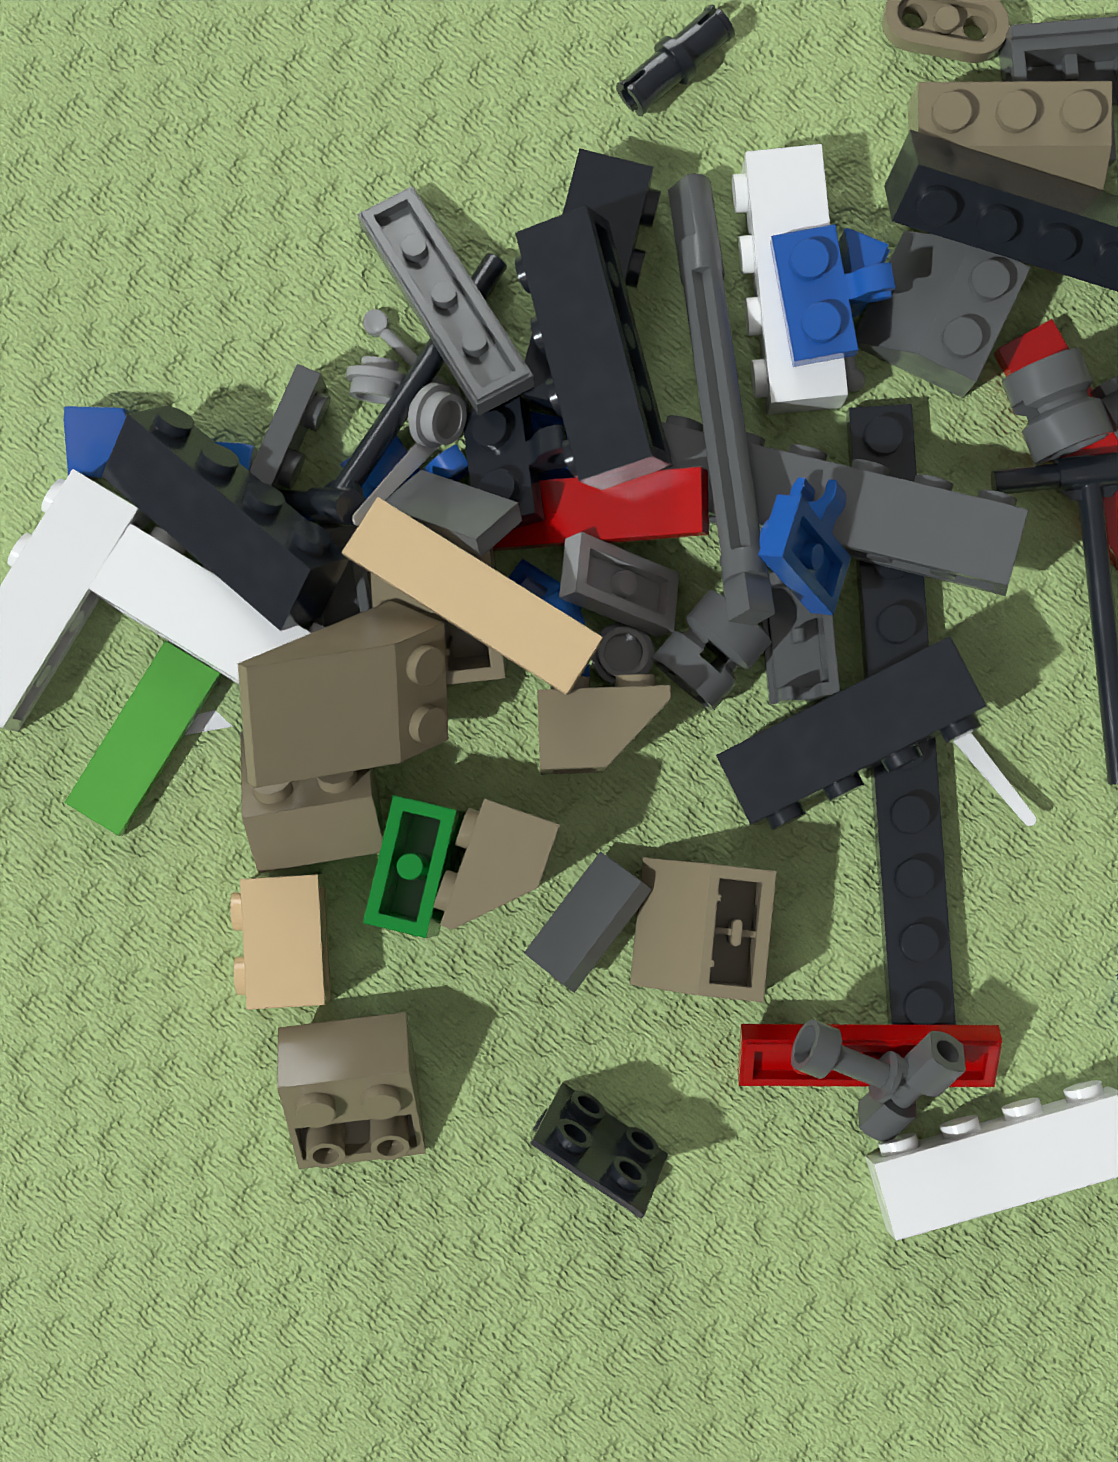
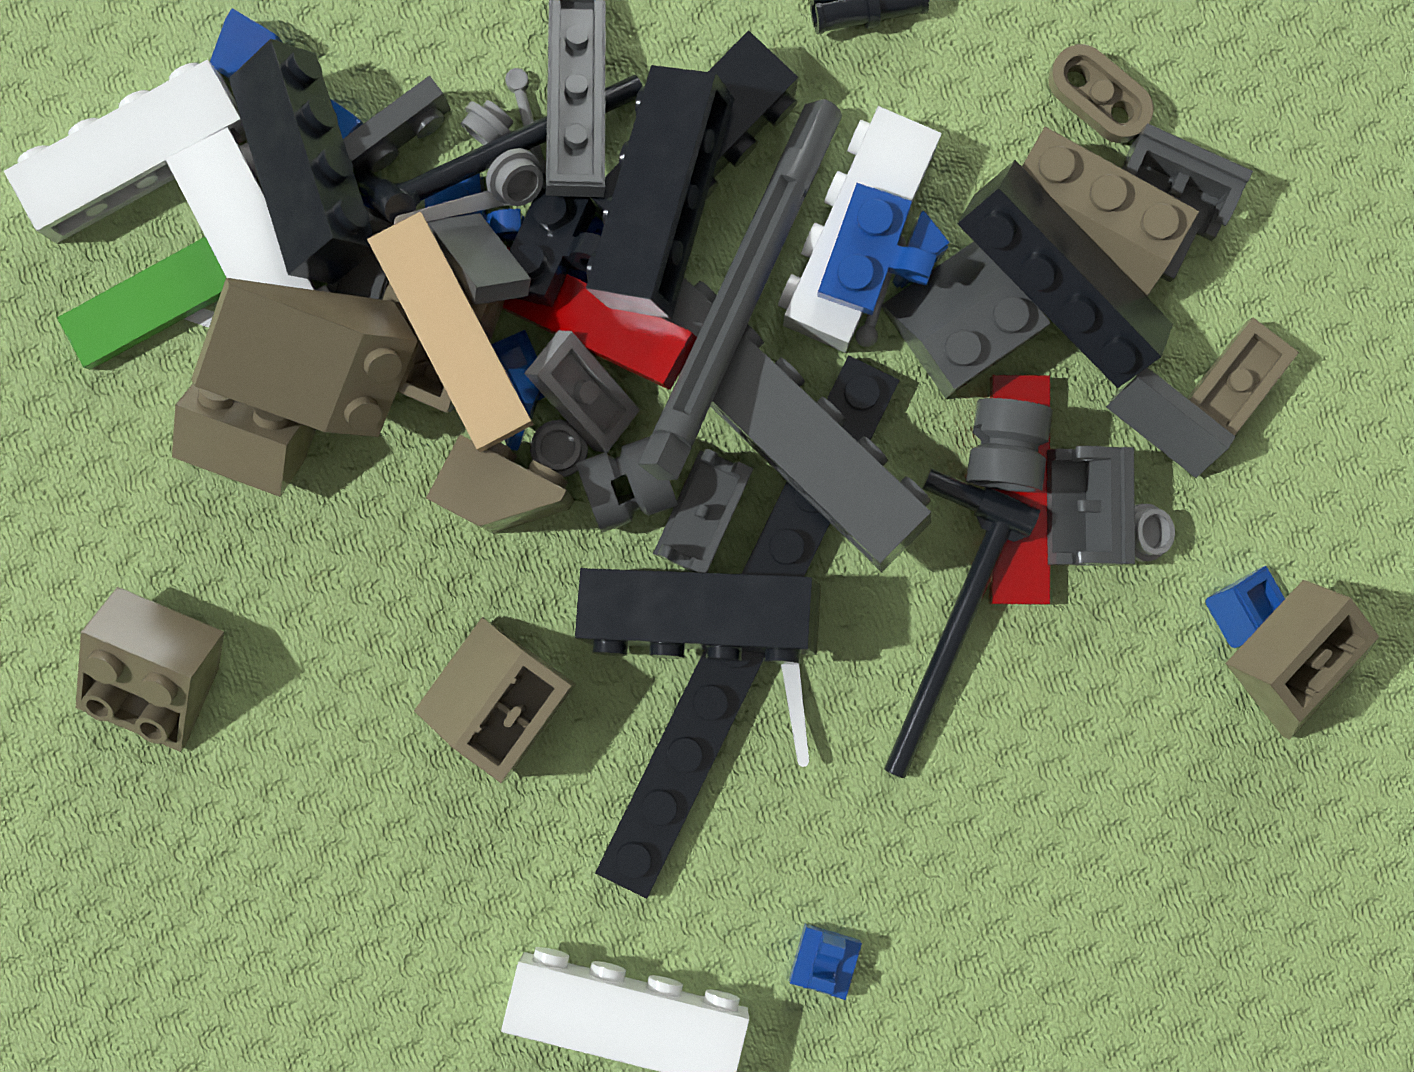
camera: 30 degrees right, 0 degrees up
(282, 942) = (162, 522): tan brick -> none
(411, 866) = (295, 522): green brick -> none
(500, 863) = (362, 552): dark tan slope -> none
(587, 921) = (408, 642): dark grey tile -> none
(600, 1148) = (310, 826): black hinge -> none
(767, 1050) = (568, 873): red tile -> none
(801, 545) = (733, 439): blue plate -> none
(892, 1080) = (571, 904): dark grey bar -> none

